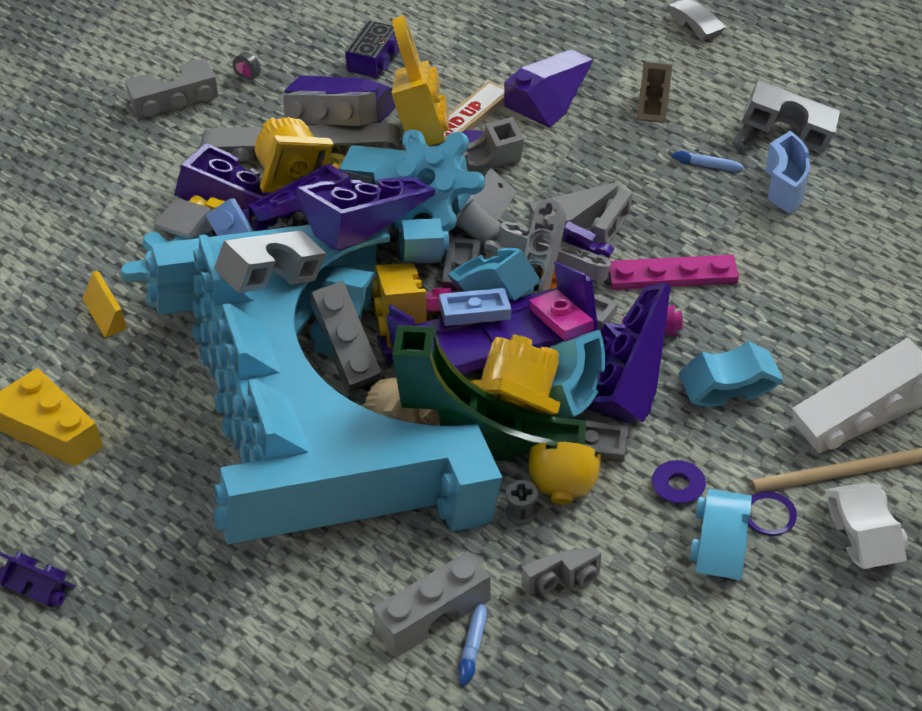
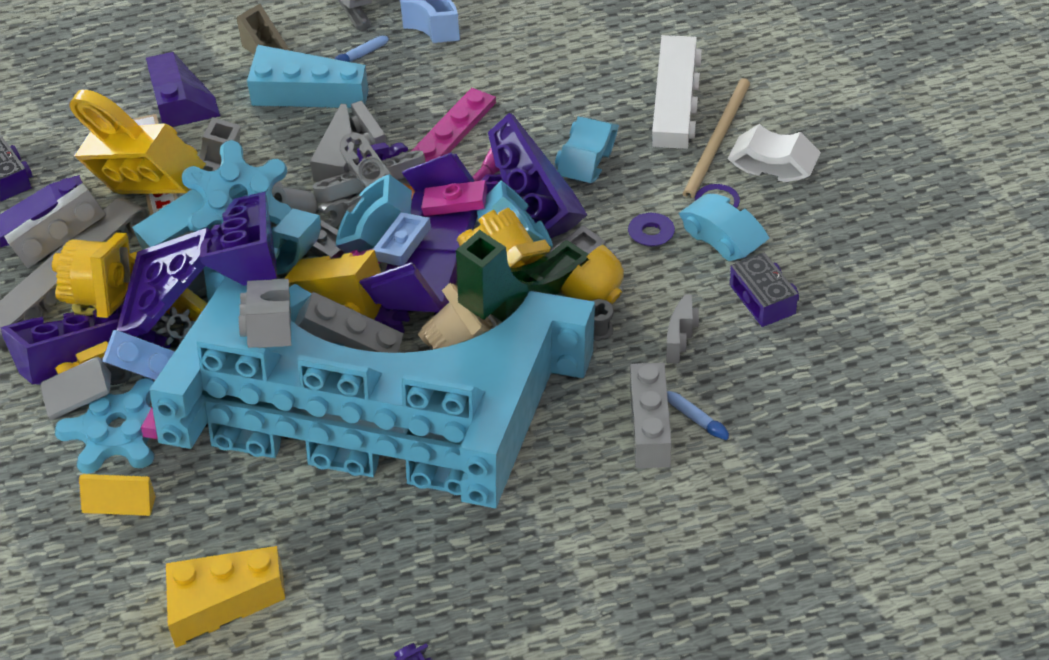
camera: 55 degrees left, 0 degrees up
(627, 147) = (304, 80): none -> medium azure wedge
(671, 611) = (764, 289): none -> brick

